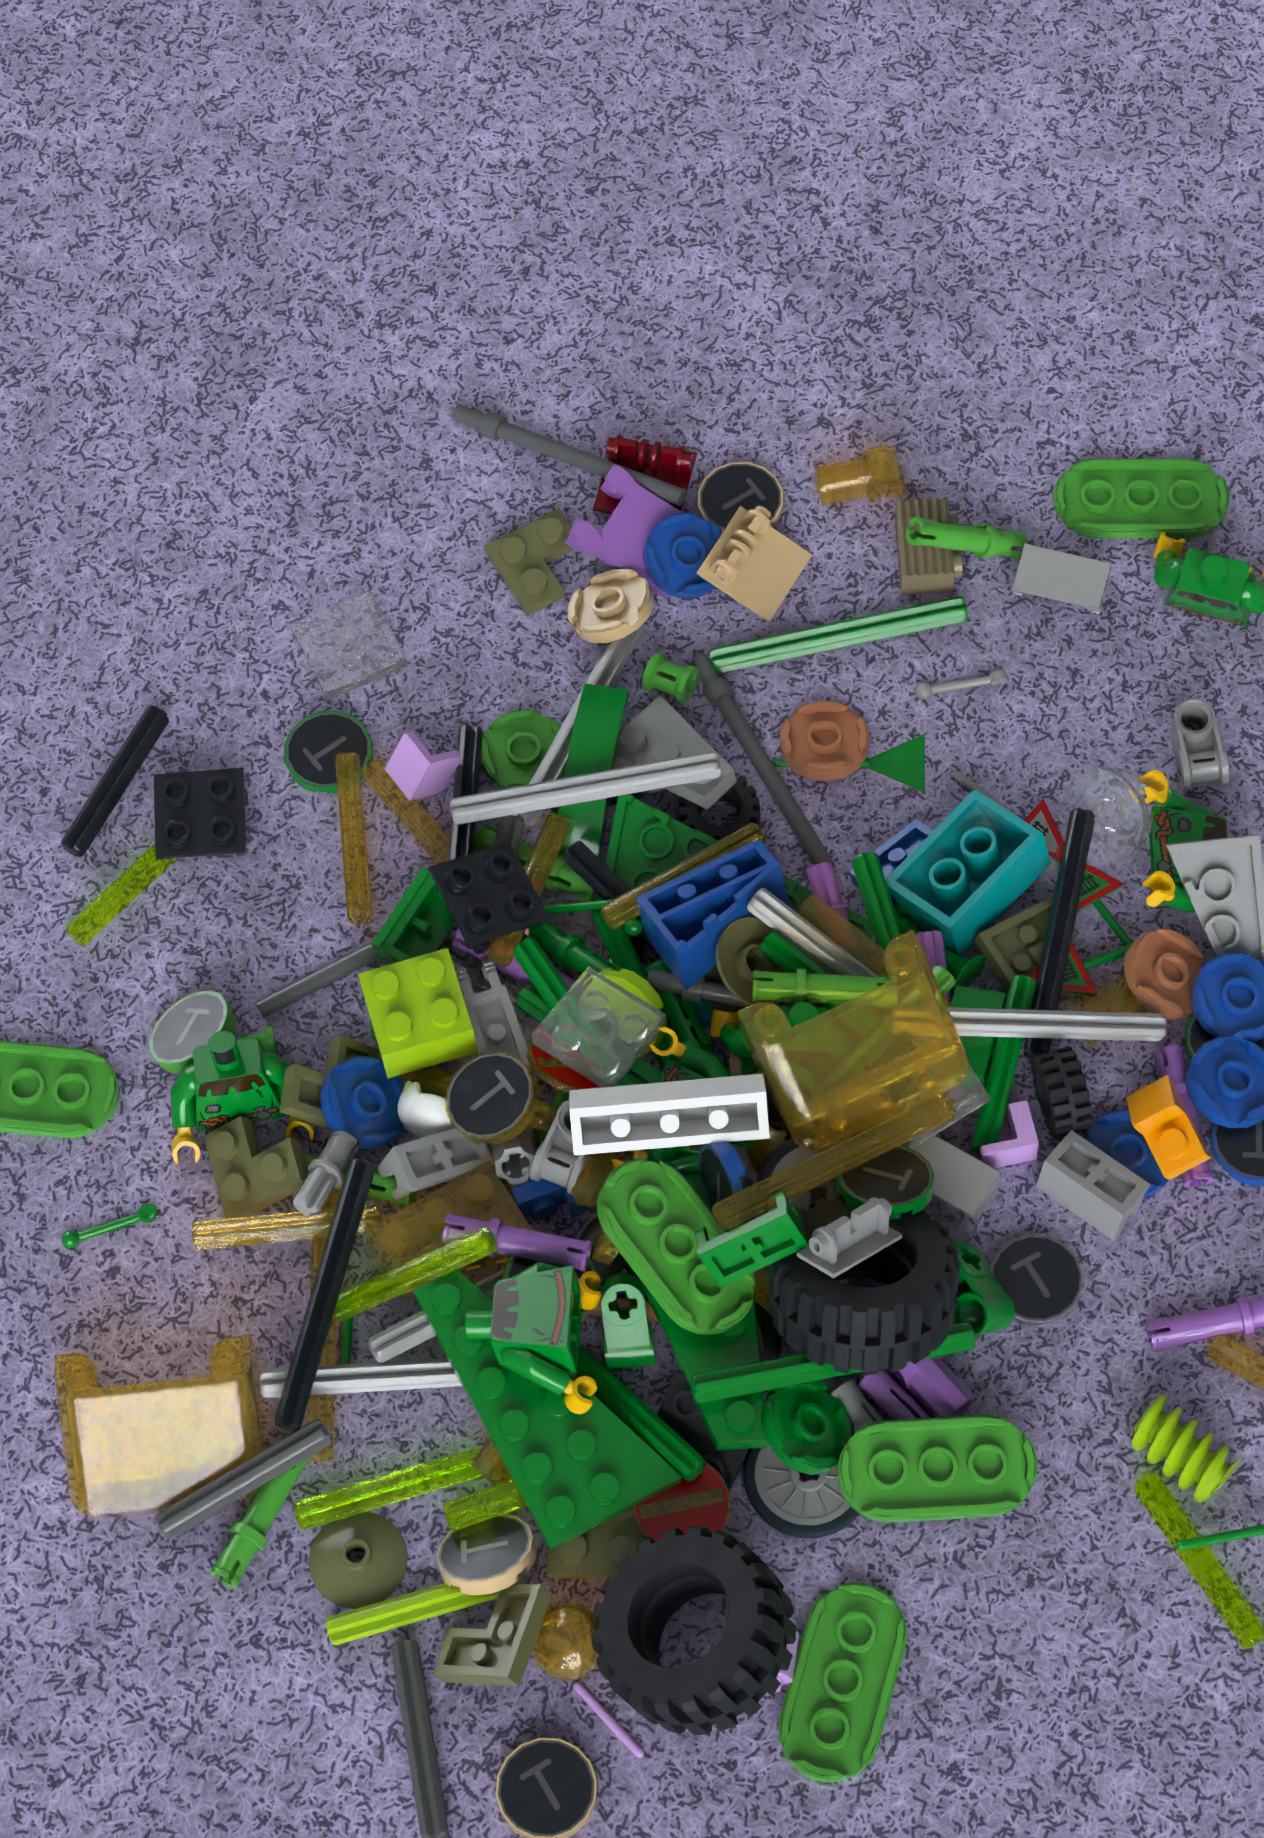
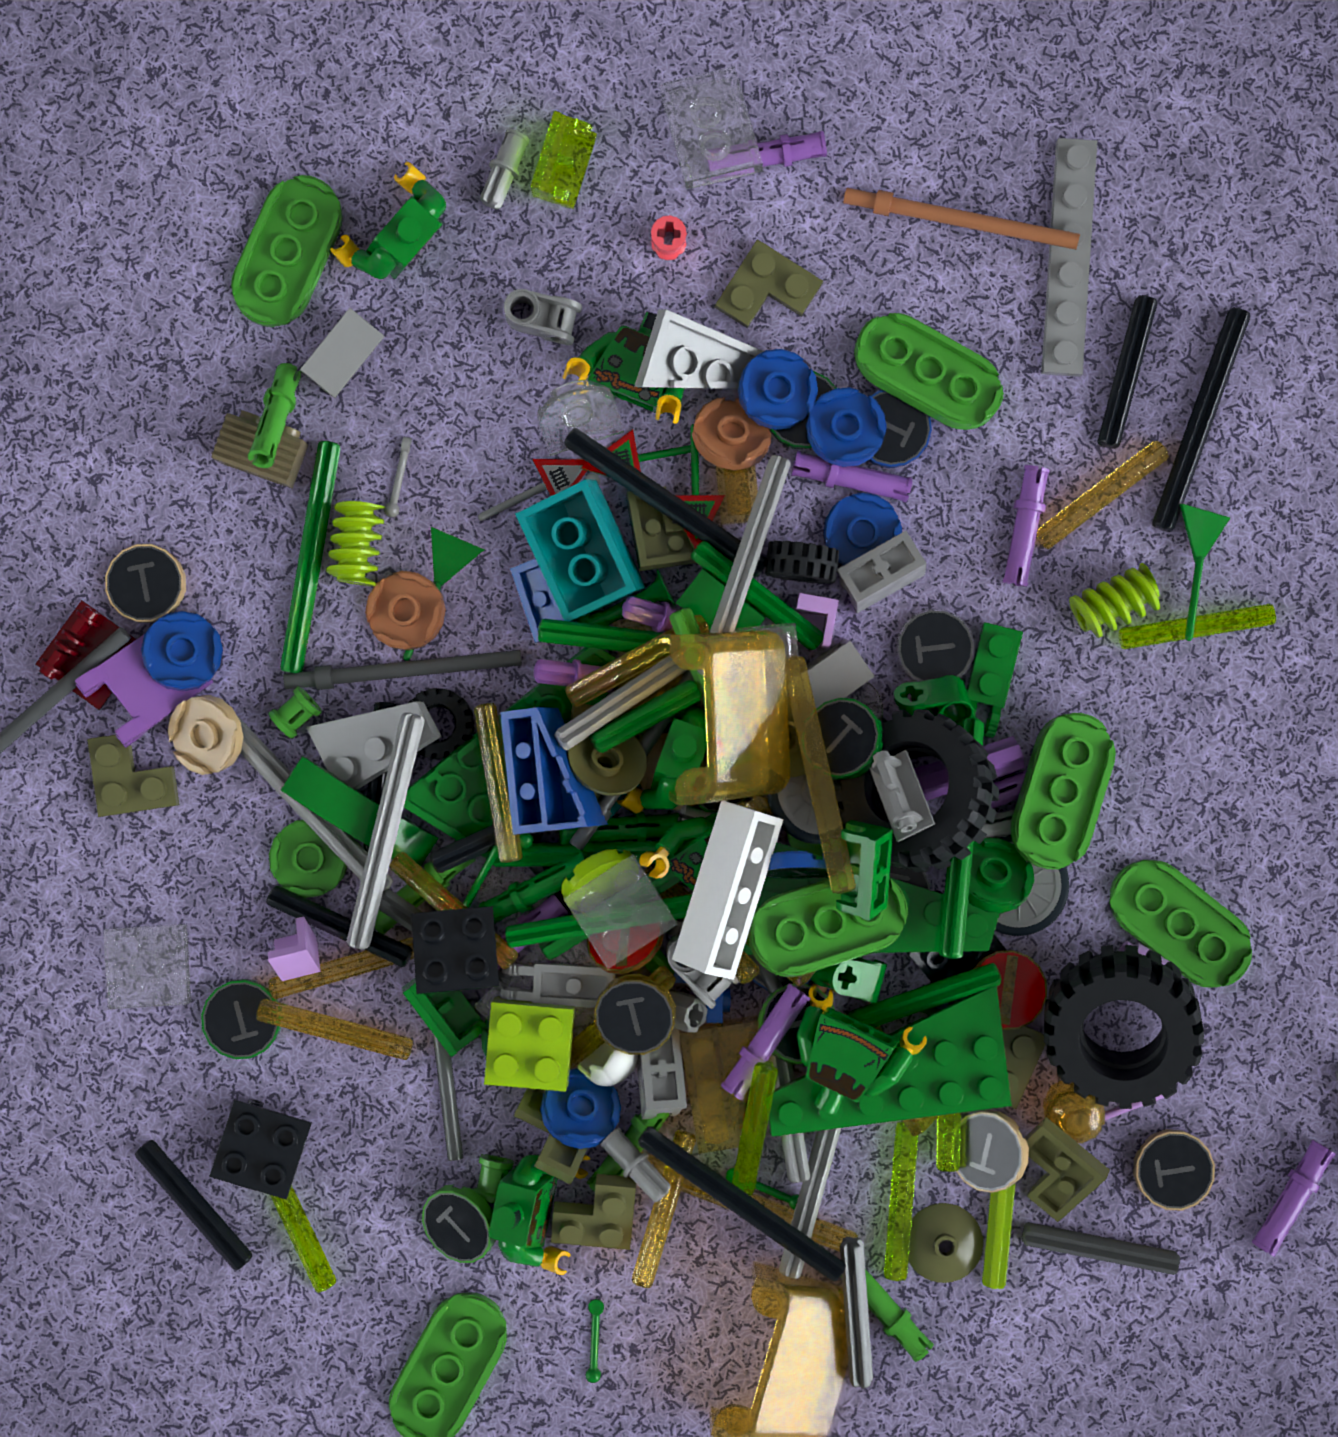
camera: 75 degrees left, 25 degrees up
(754, 562) = (214, 598): tan hinge -> none
(812, 987) = (658, 721): bright green pin -> none
(871, 476) = (170, 467): clear yellow piece -> none
(872, 663) = (355, 542): none -> lime piece
(1035, 1353) = (993, 671): none -> green hinge
(1167, 1127) = (861, 495): light orange slope -> none

